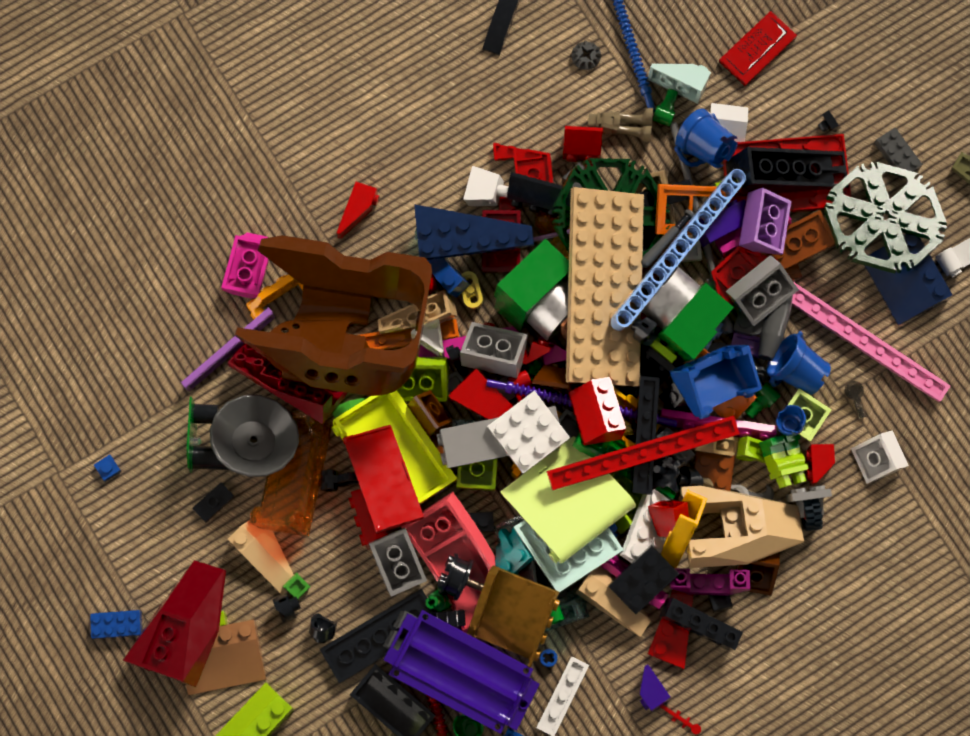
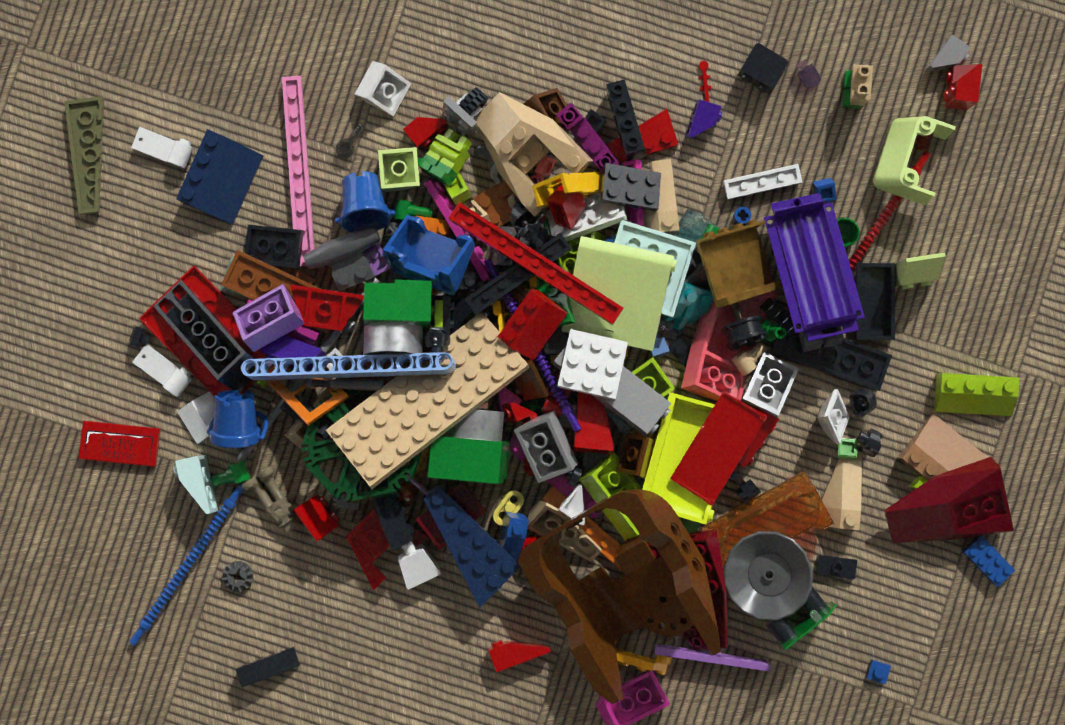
camera: 130 degrees left, 10 degrees up
(329, 595) = (833, 417): none -> white slope
(431, 561) = (746, 360): none -> tan pin
(500, 504) = (660, 348): none -> medium blue piece
(713, 528) = (543, 169): none -> coral plate
(762, 290) = (326, 276): light grey slope -> none
(788, 121) = (163, 370): none -> white door
(791, 420) = (414, 172): blue hair -> none
(819, 275) = (275, 245): none -> black plate
(874, 224) = (198, 229): plate -> none
(897, 151) = (120, 262): dark grey piece -> none

